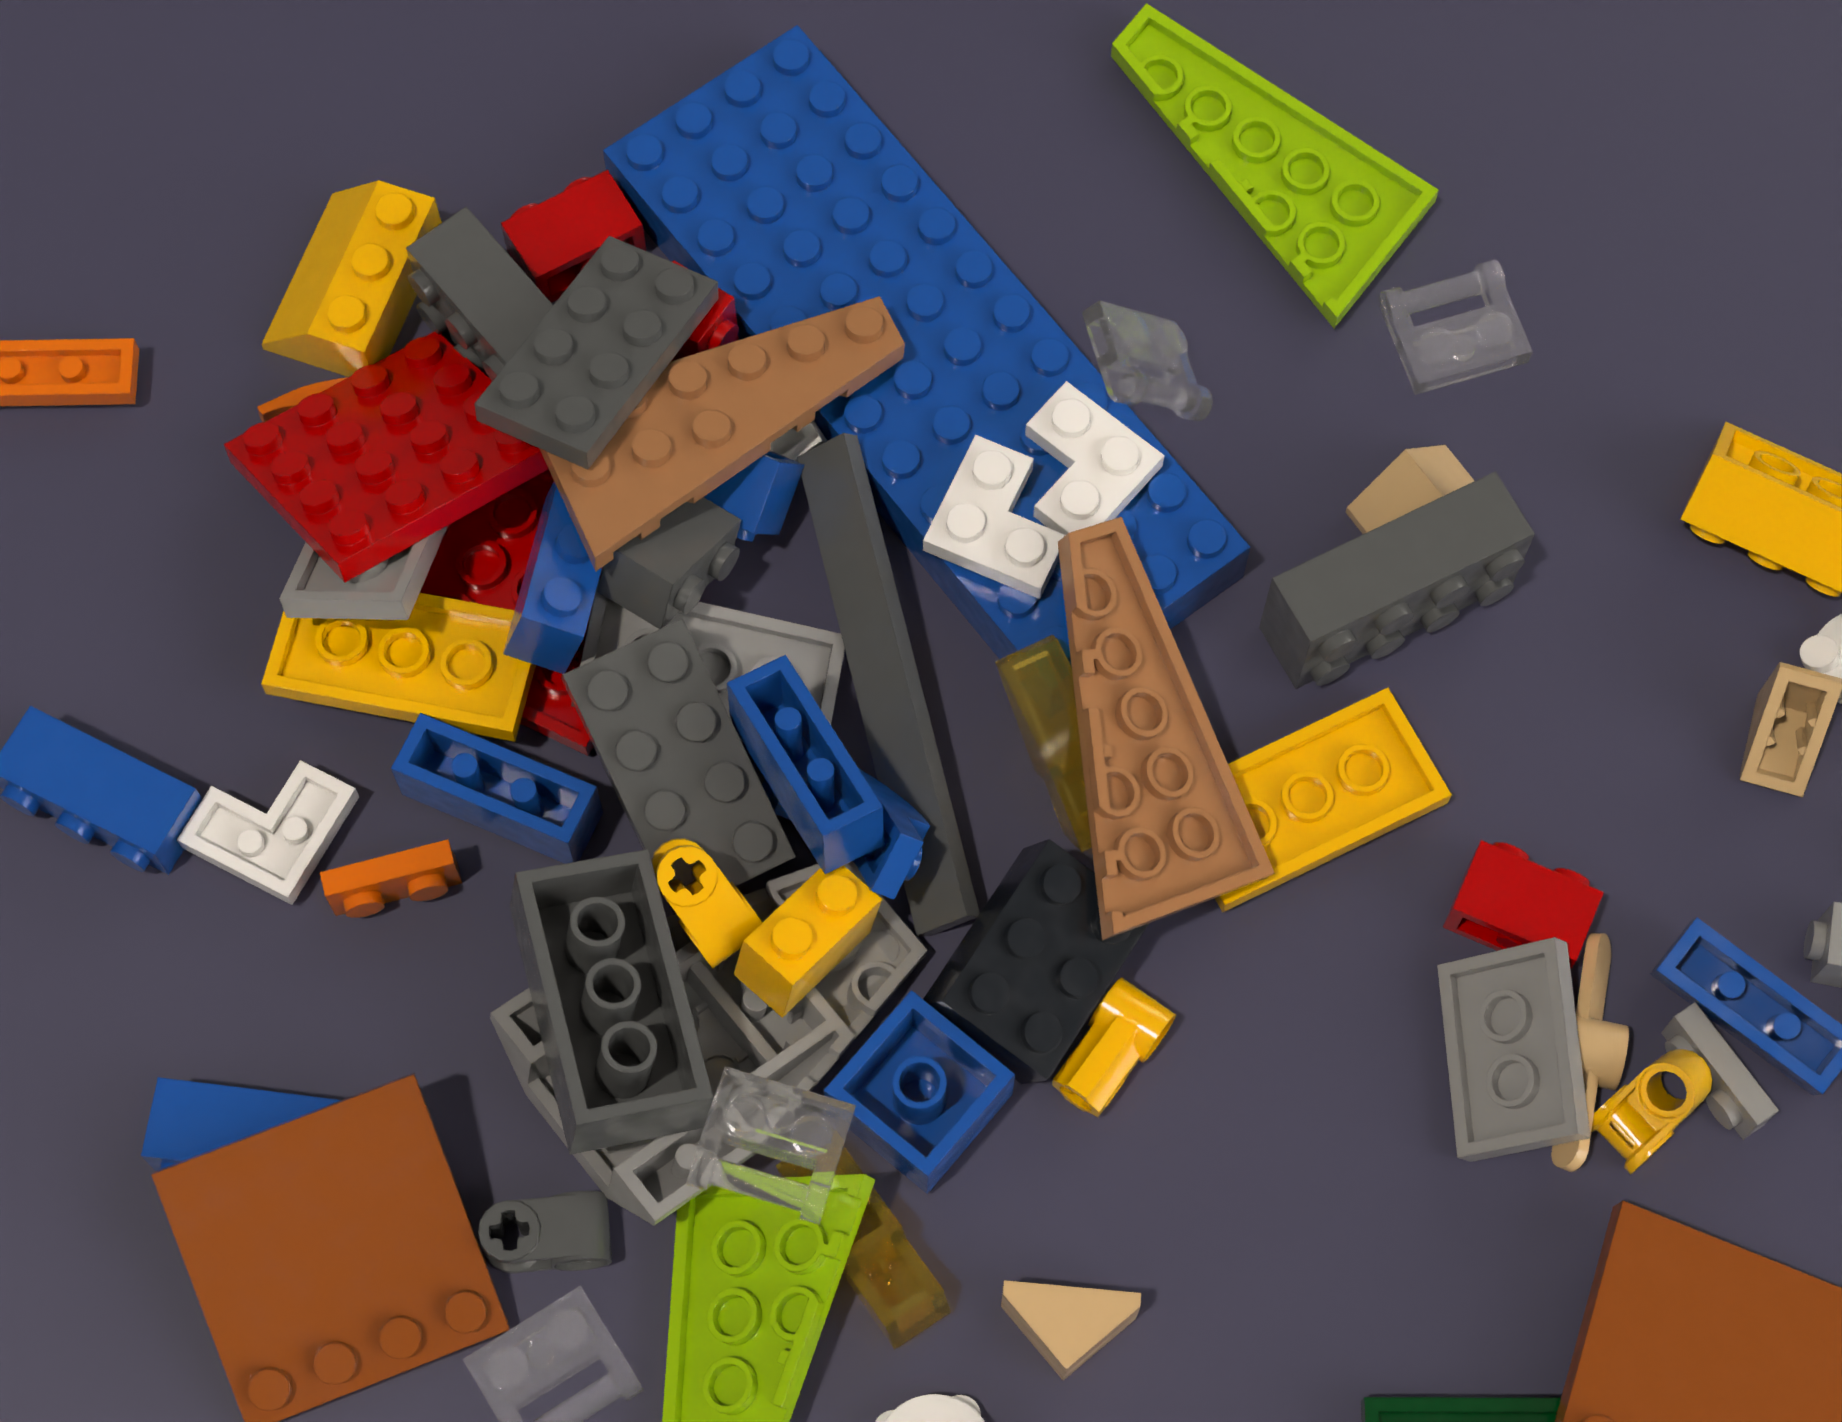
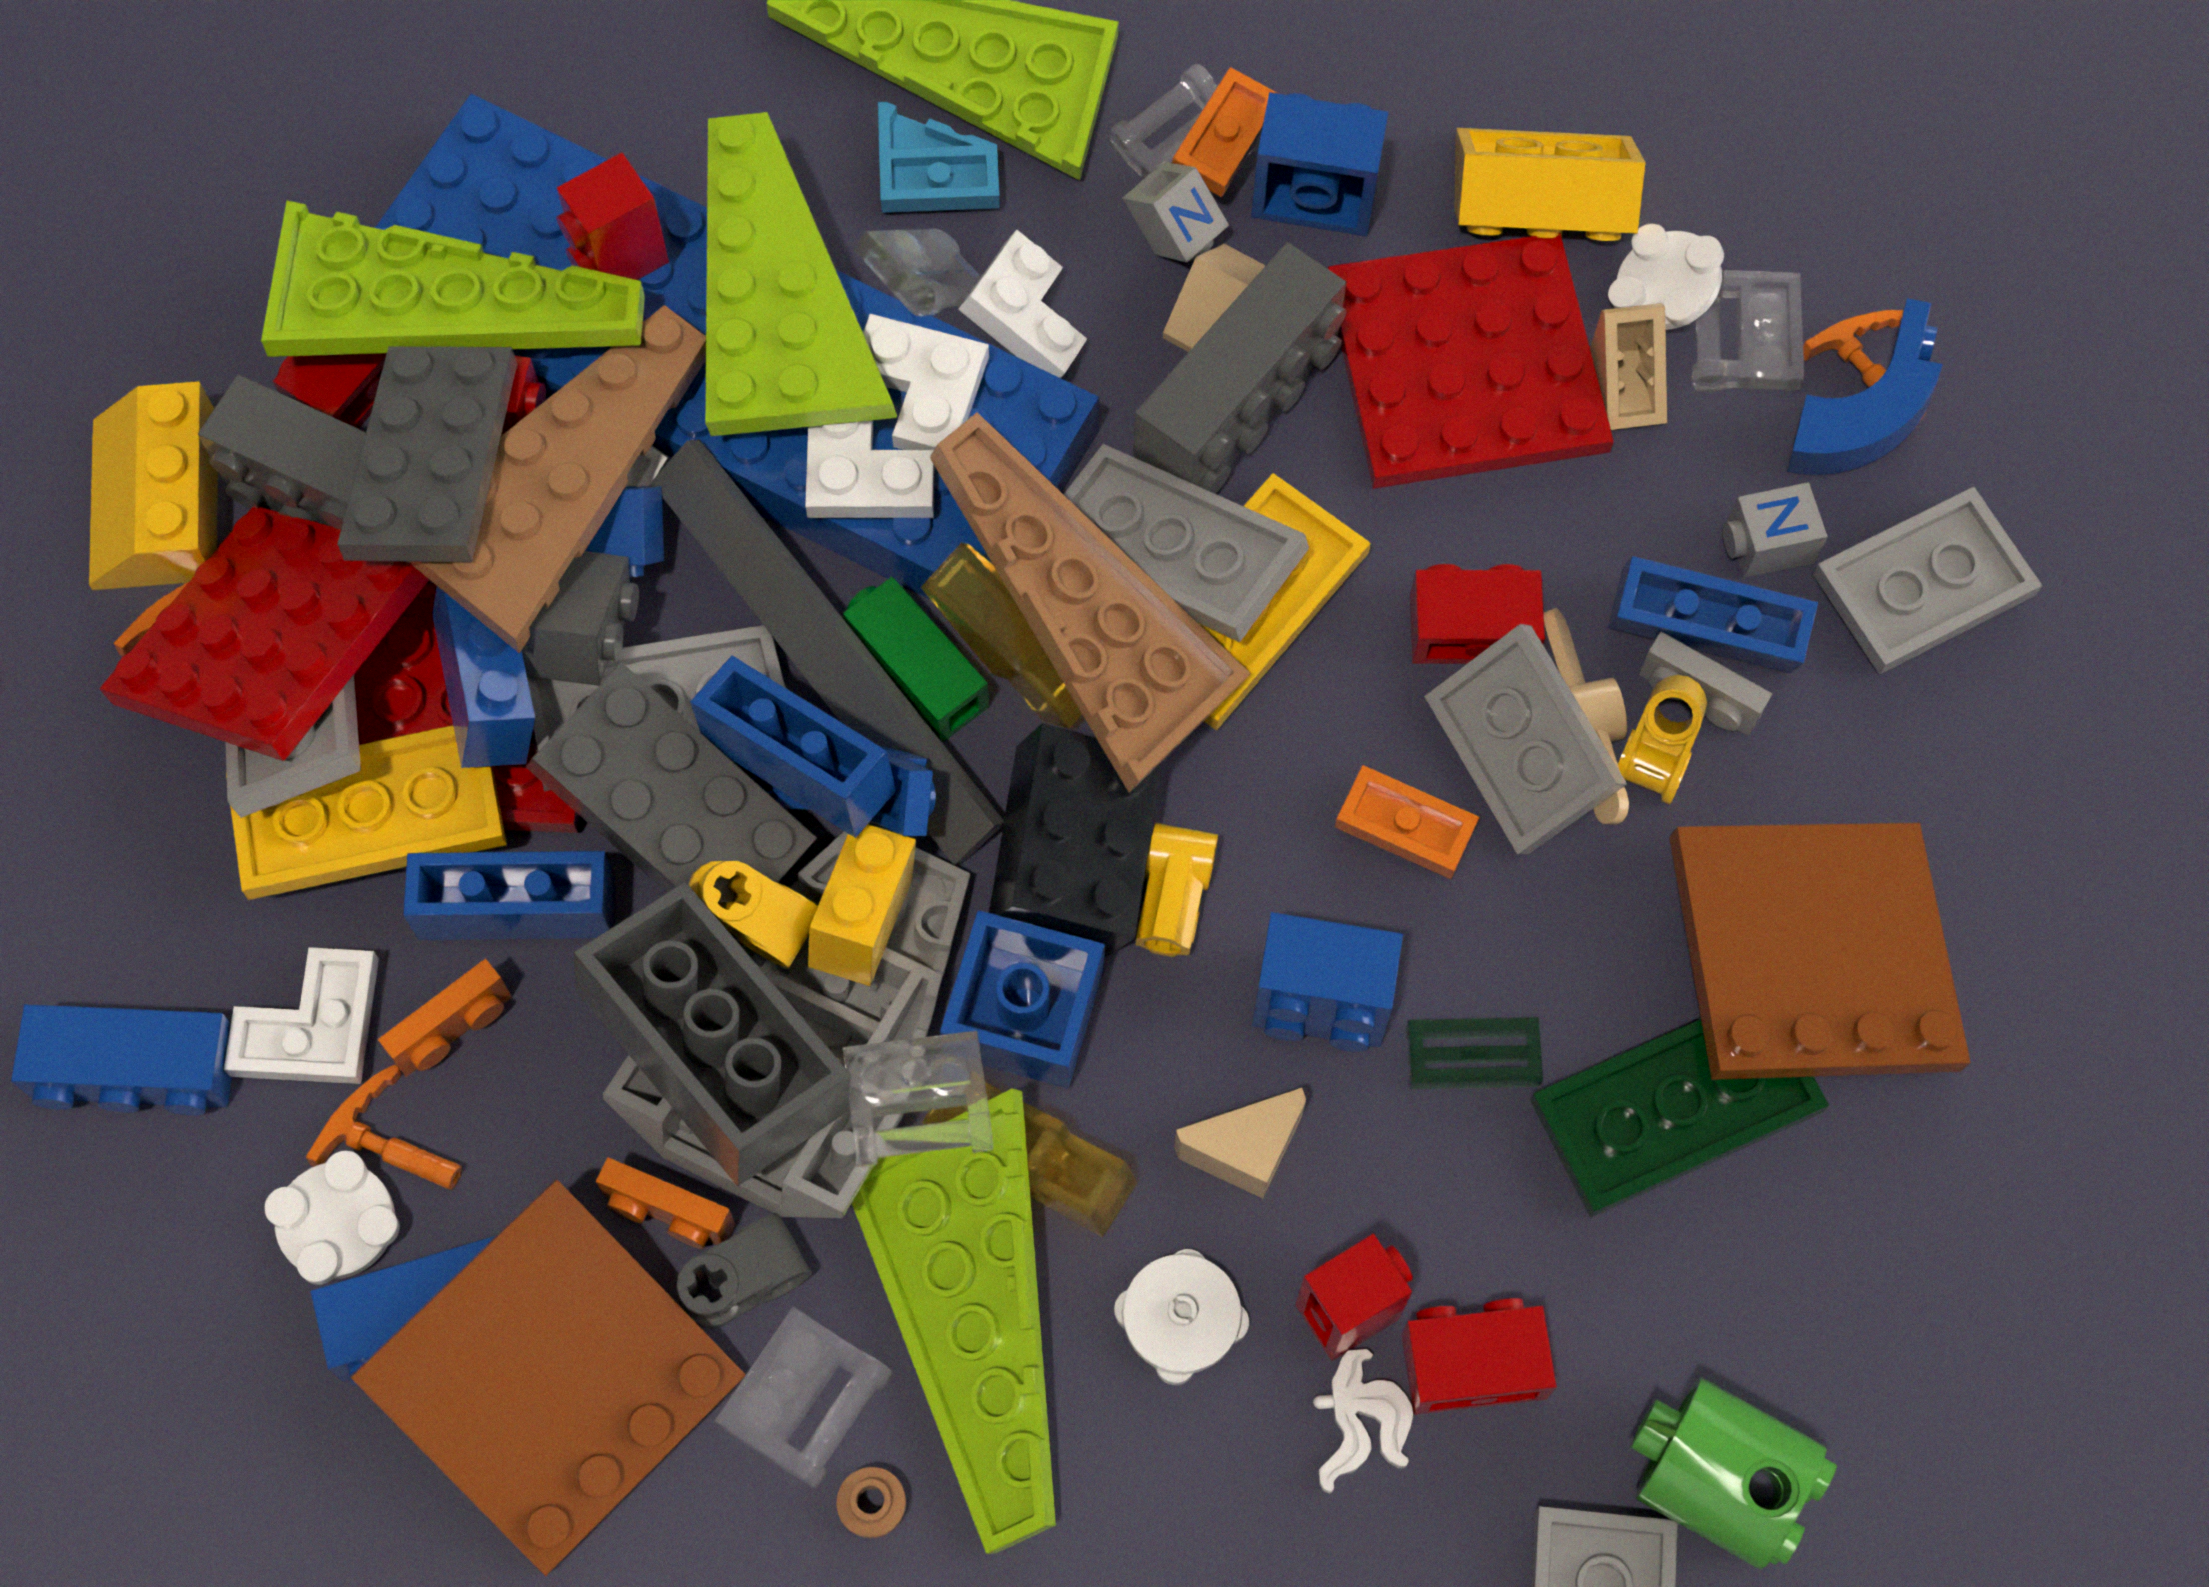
camera: 25 degrees left, 0 degrees up
(211, 1019) = (333, 1219): none -> white piece
(293, 980) = (393, 1151): none -> orange piece
(488, 1119) = (640, 1194): none -> orange plate
(646, 183) = (374, 288): none -> lime wing
(860, 203) = (612, 221): none -> red brick
(968, 725) = (918, 658): none -> green brick
(980, 346) = (776, 312): none -> lime wing
(1199, 260) = (933, 166): none -> dark azure wing
(1208, 432) = (1011, 310): none -> white plate
(1210, 1201) = (1327, 982): none -> blue brick
(1272, 719) = (1191, 542): none -> light grey plate
(1316, 1355) = (1474, 1077): none -> clear green tile
(1364, 1080) = (1406, 822): none -> orange plate
(1409, 397) = (1176, 212): none -> light grey brick
(1491, 338) = (1225, 130): none -> orange plate
(1567, 404) = (1318, 163): none -> blue brick
(1633, 655) = (1469, 361): none -> red plate

